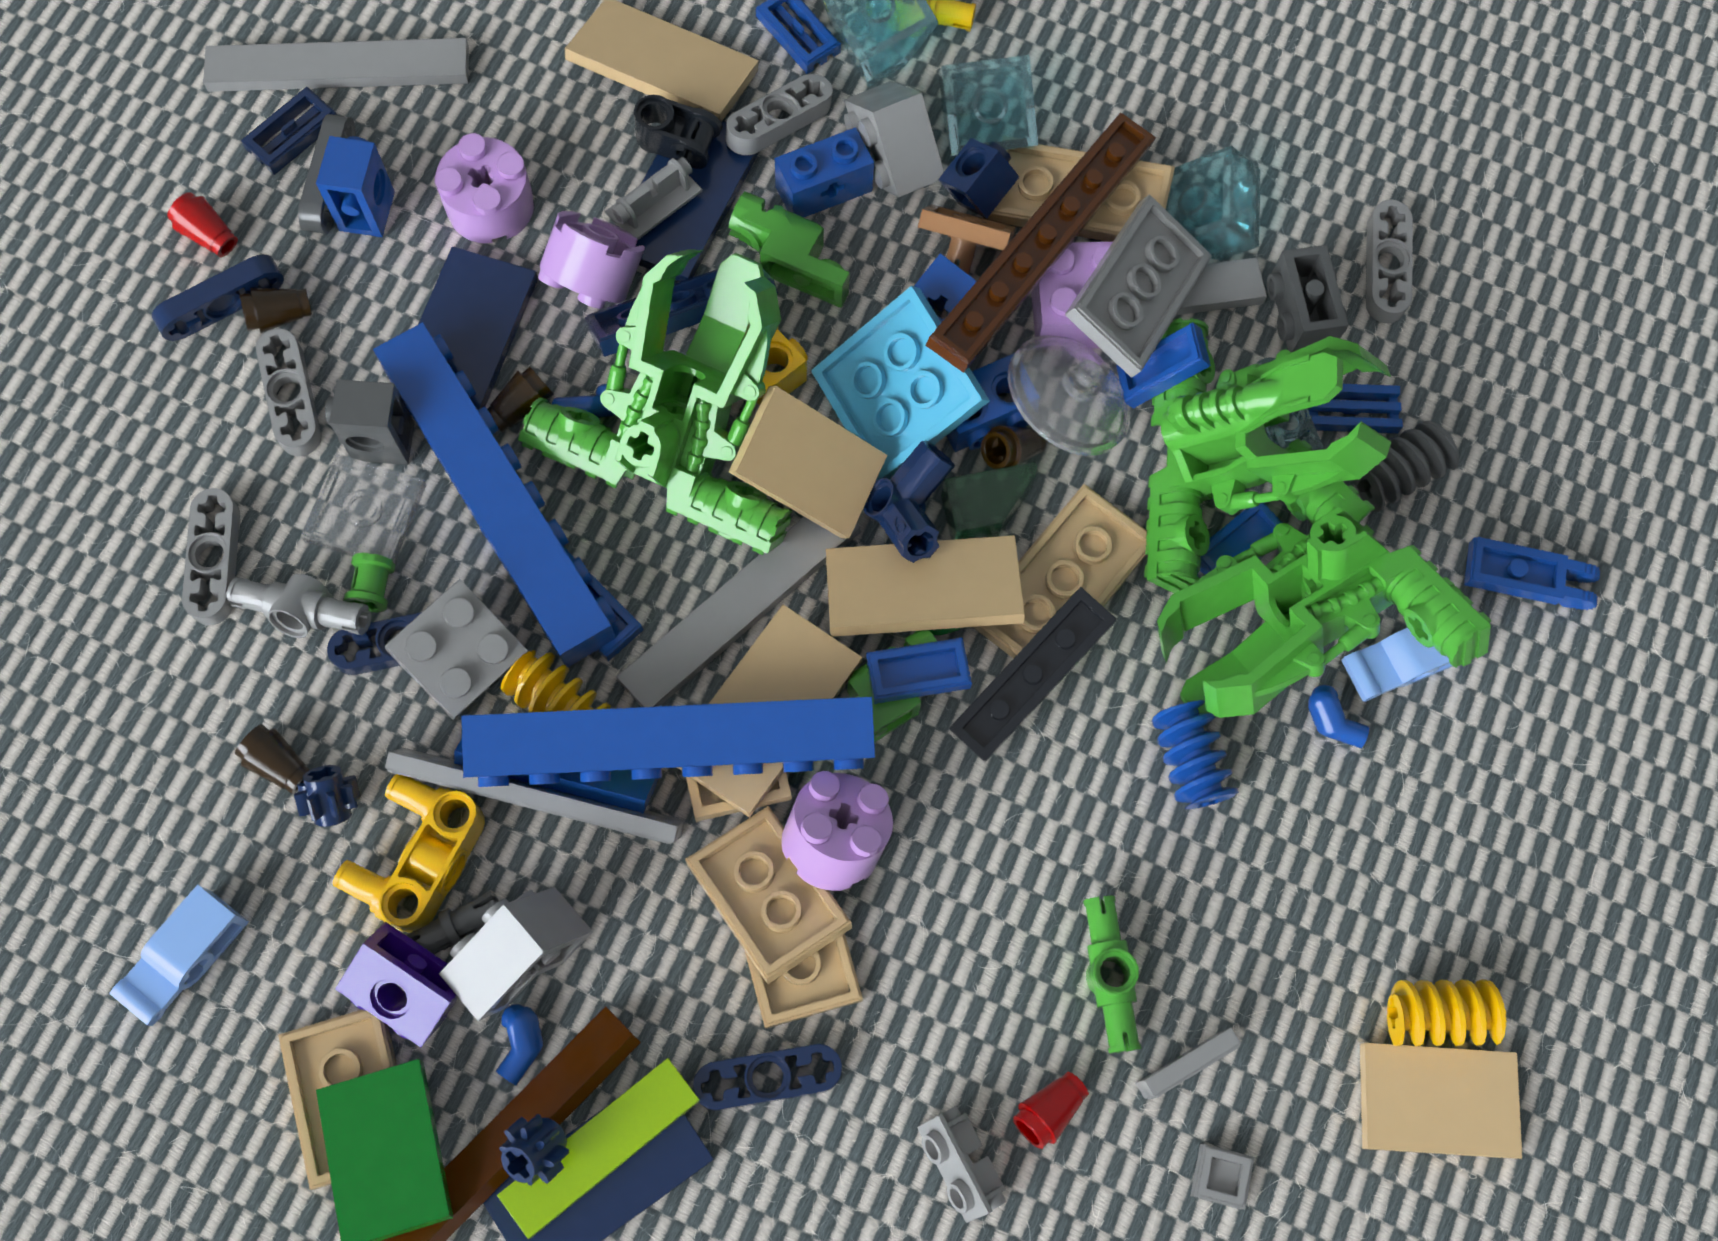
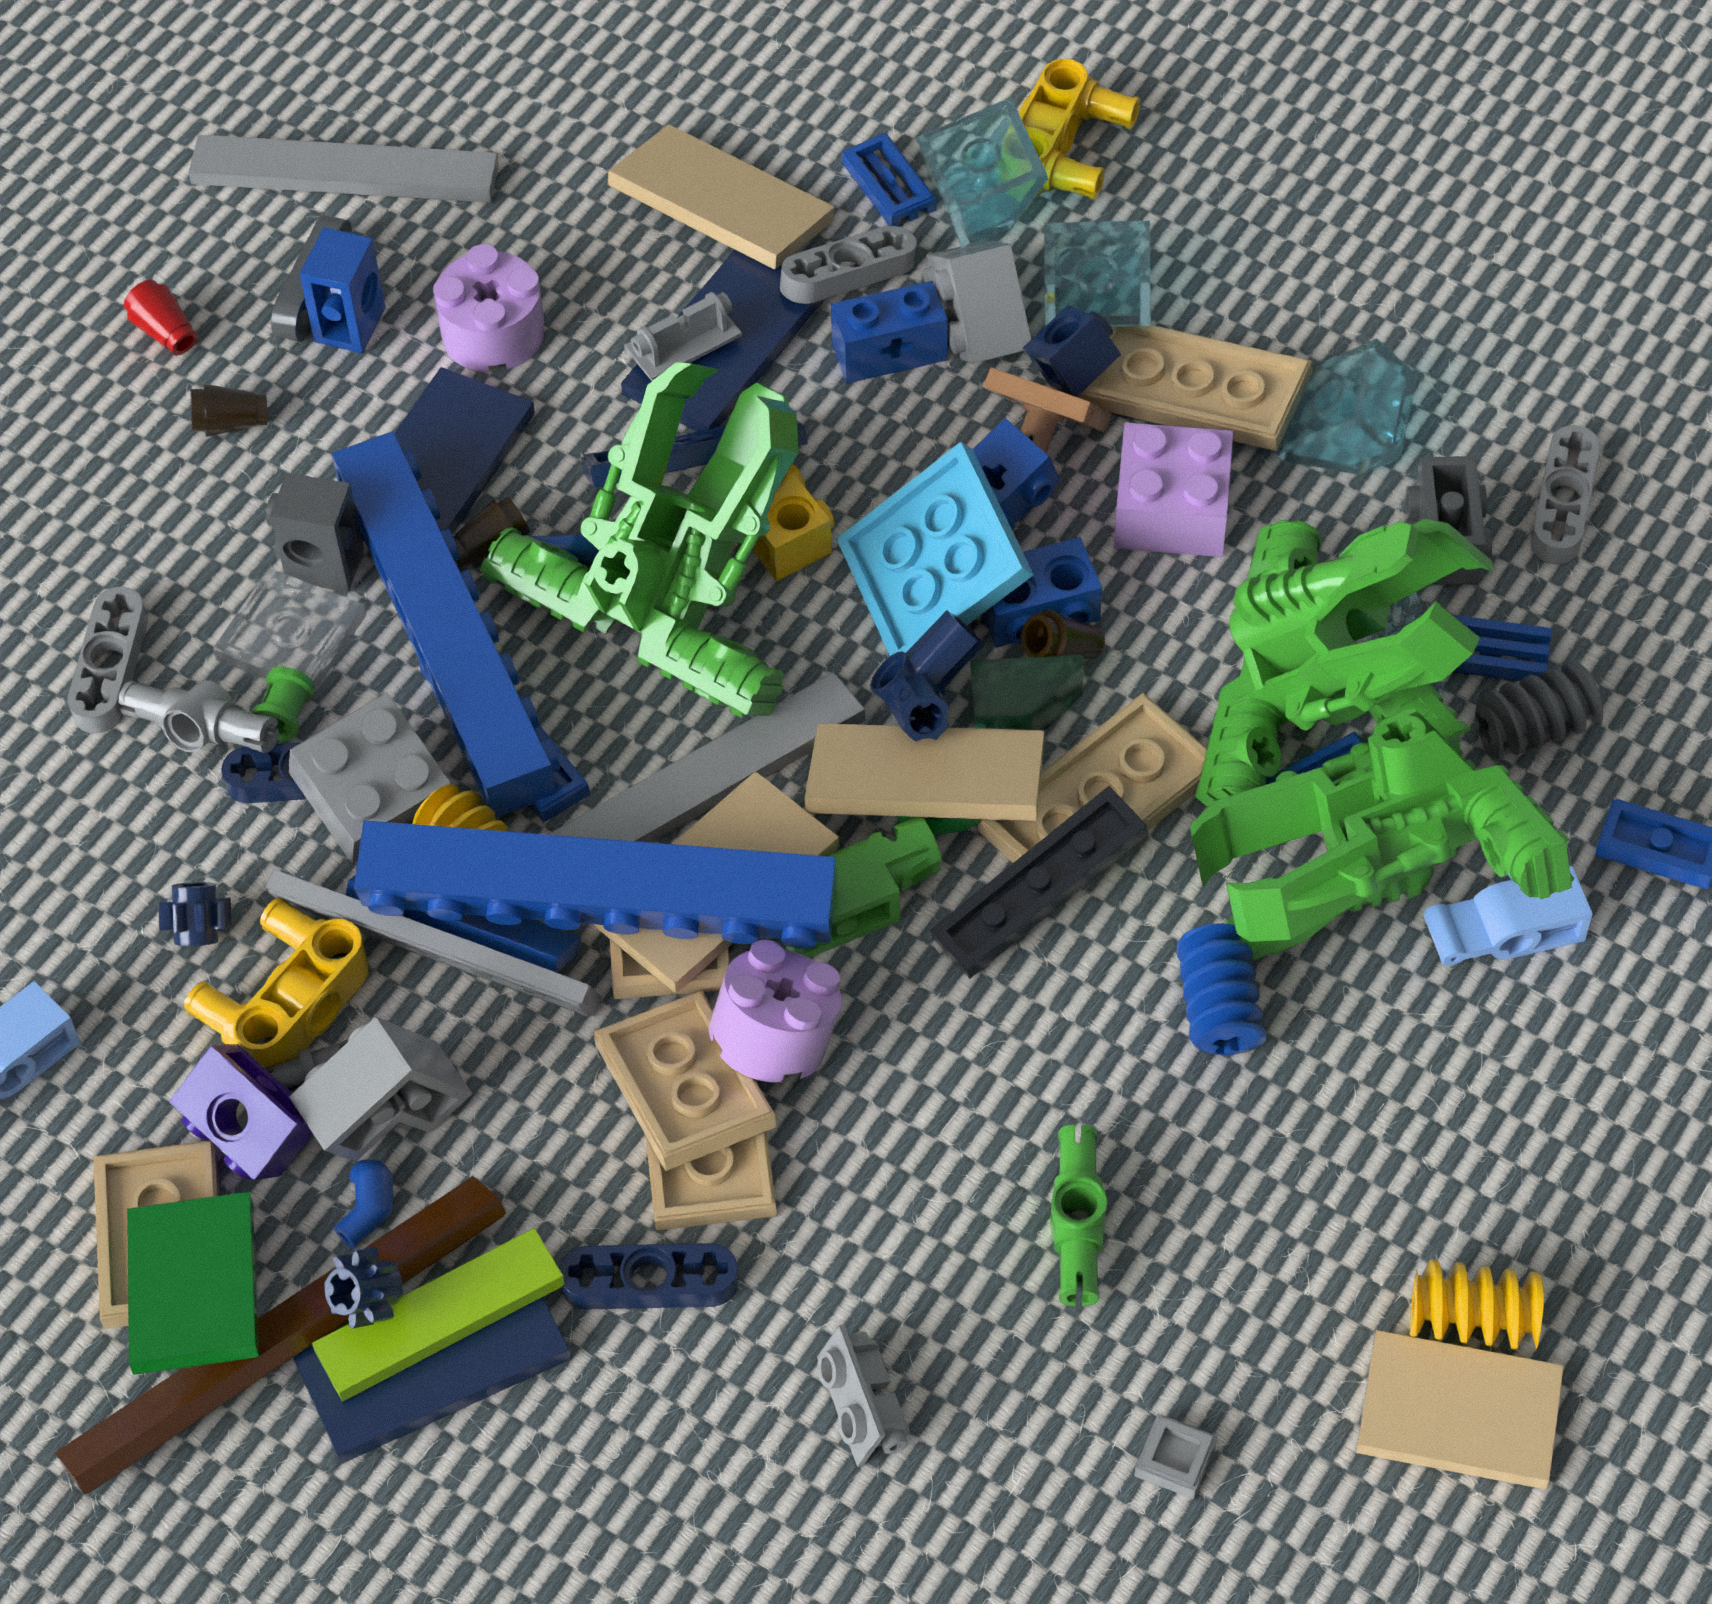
camera: 15 degrees right, 15 degrees down
(214, 297) = (133, 403): dark blue beam -> none
(271, 758) = (136, 869): dark brown cone -> none
(275, 377) = (238, 516): light grey beam -> none
(295, 135) = (282, 236): dark blue tile -> none
(590, 259) = (594, 387): lavender brick -> none
(678, 132) = (720, 263): black piece -> none
(789, 248) = (835, 407): bright green plate -> none
(808, 462) = (810, 620): tan tile -> none
(918, 670) = (901, 854): blue tile -> none
(1039, 243) = (1127, 416): reddish brown tile -> none
(1050, 1110) = (977, 1351): red cone -> none
(1069, 395) = (1139, 591): clear dish -> none
(1139, 286) = (1238, 476): light grey tile -> none
(1171, 363) = (1270, 553): blue tile -> none
(1188, 1064) = (1152, 1321): light grey tile -> none
(1226, 286) = (1346, 499): light grey tile -> none
(1330, 718) = (1400, 982): blue arm -> none

